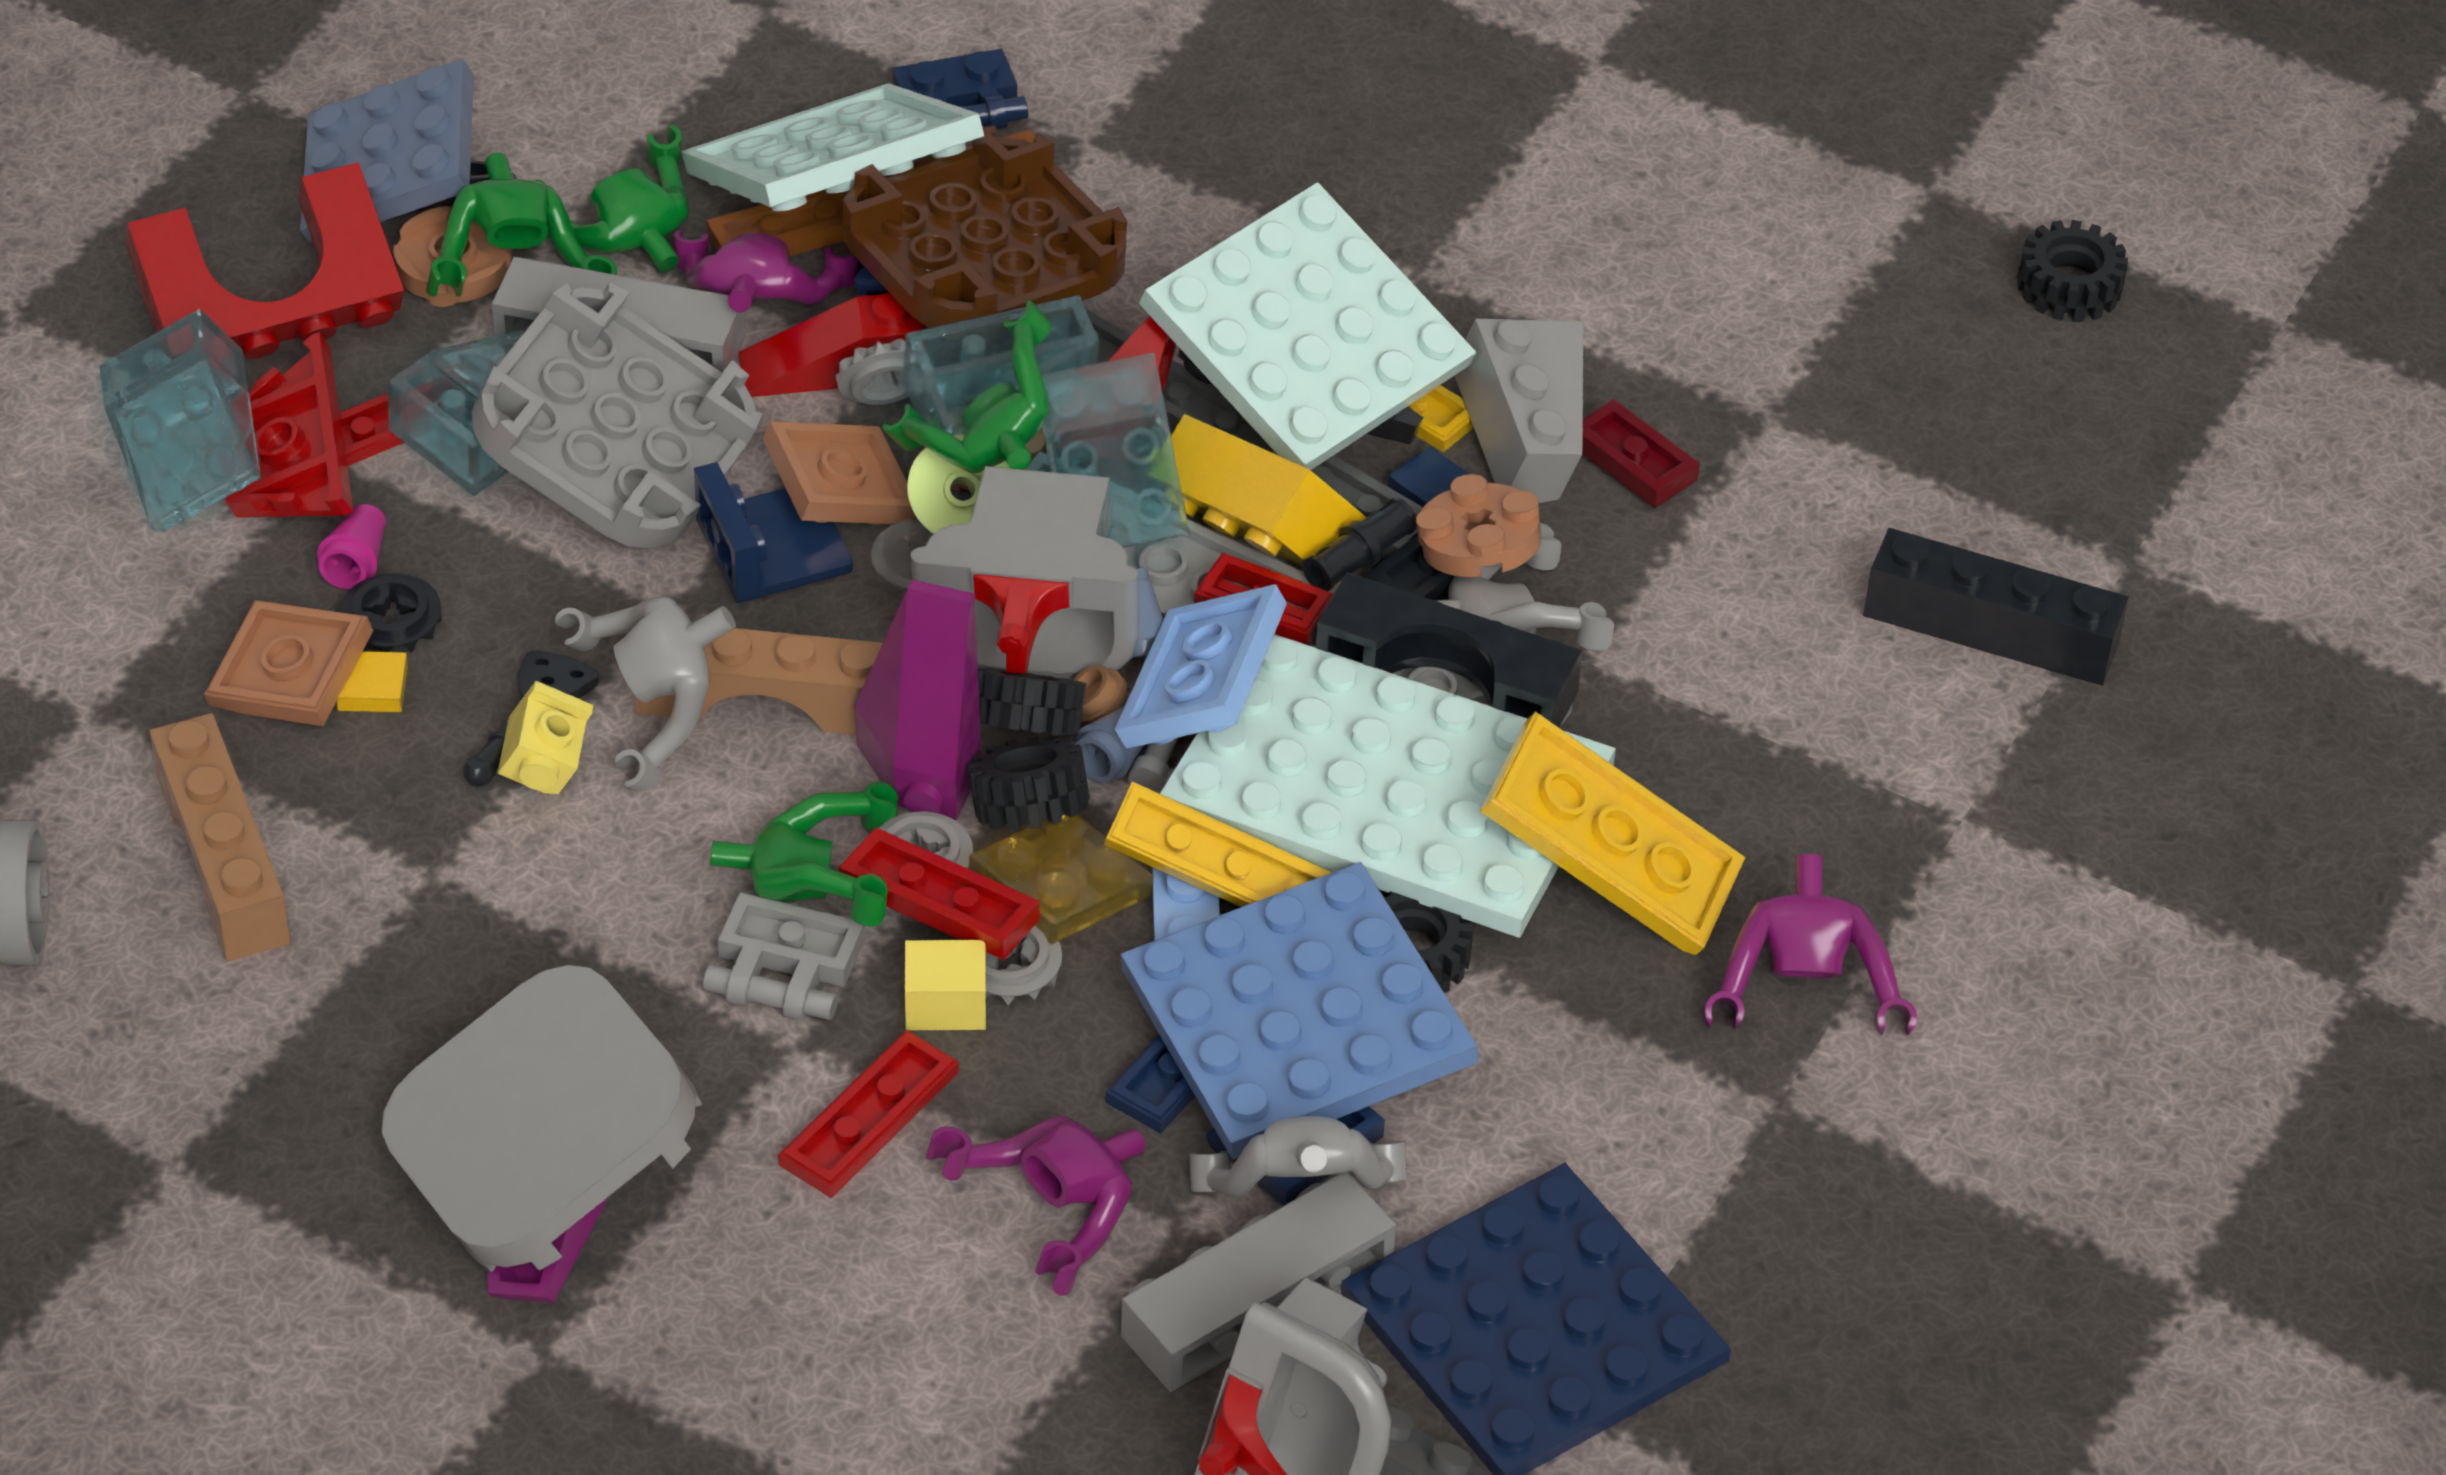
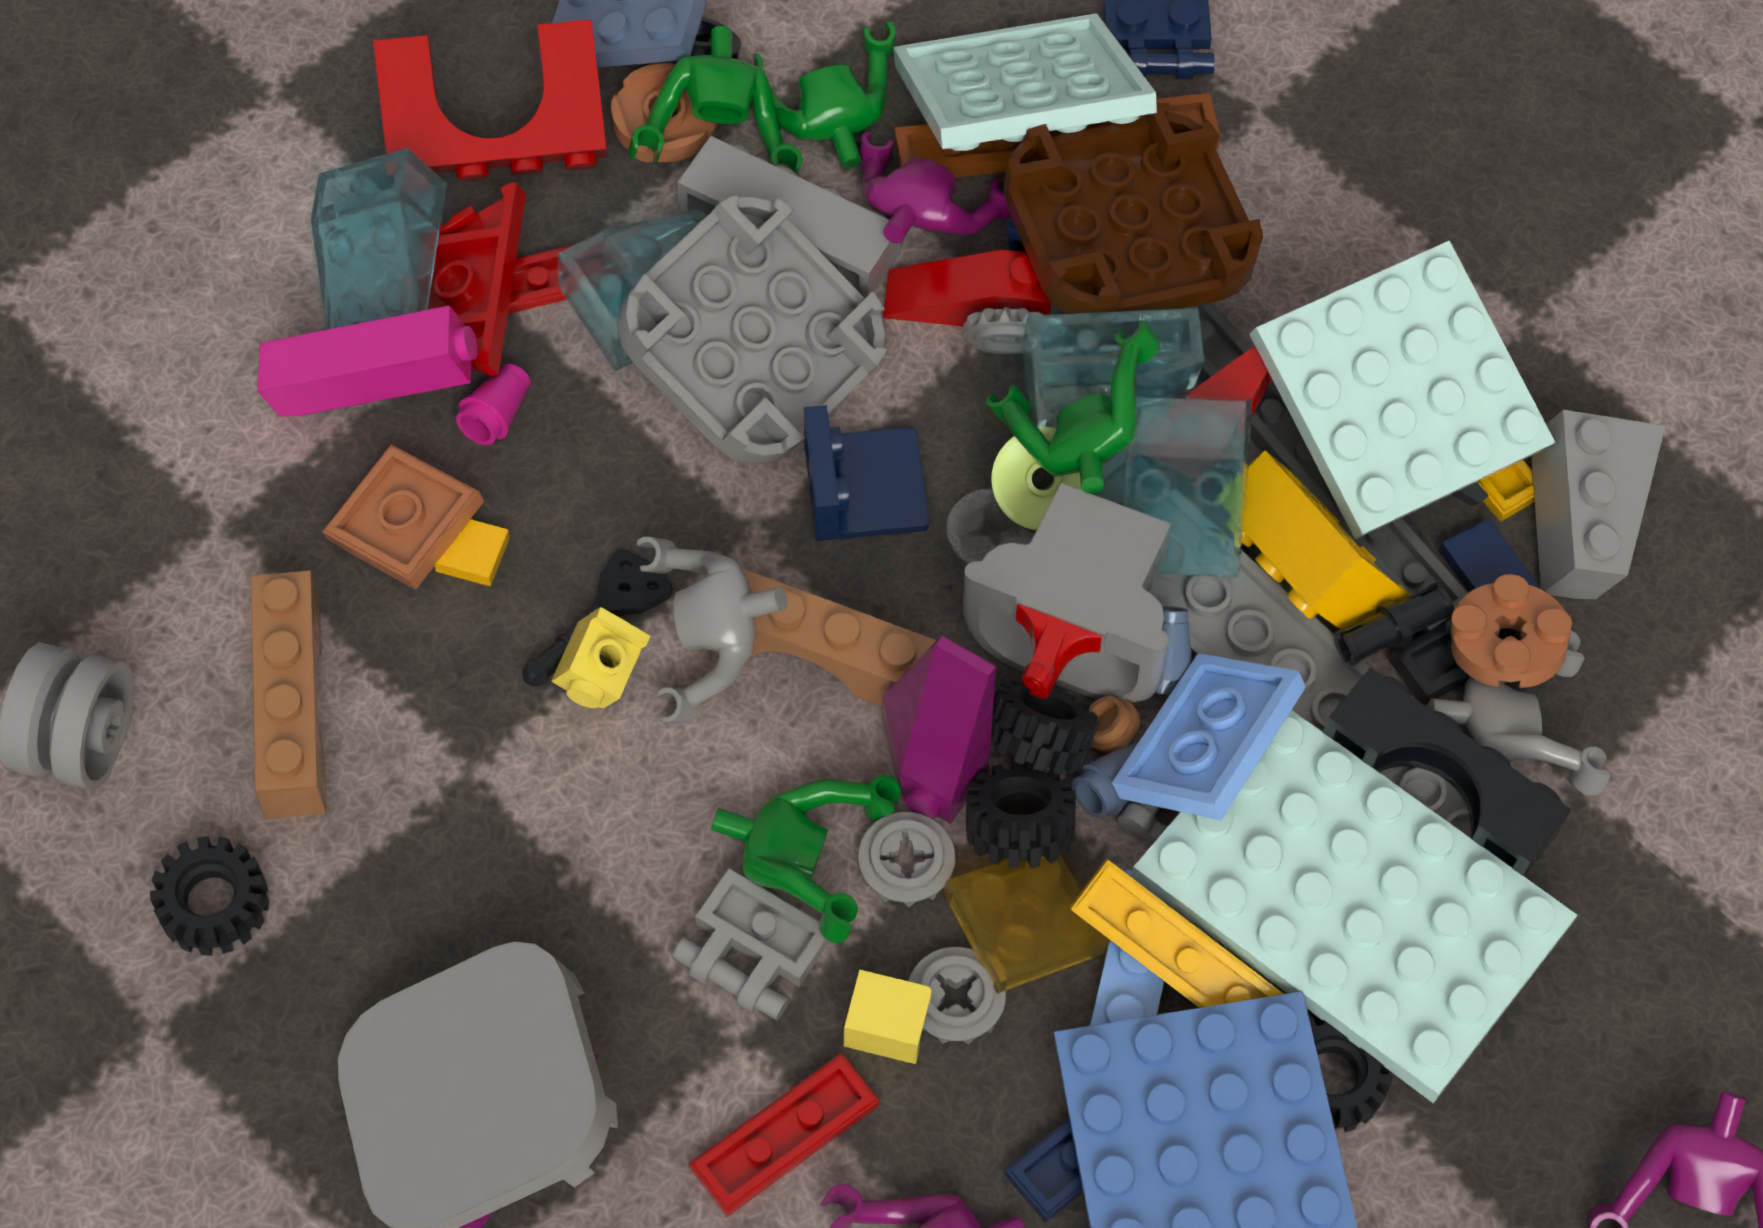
camera: 15 degrees right, 15 degrees up
(199, 1059) = (200, 864): none -> black tyre
(208, 524) = (366, 362): none -> dark pink brick
(414, 598) = (498, 460): black gear -> none
(839, 472) = (938, 428): nougat plate -> none
(945, 893) = (907, 922): red plate -> none
(1295, 622) = (1307, 703): red tile -> none
(1613, 834) = (1550, 1014): yellow tile -> none
(1637, 454) = (1681, 571): dark red plate -> none

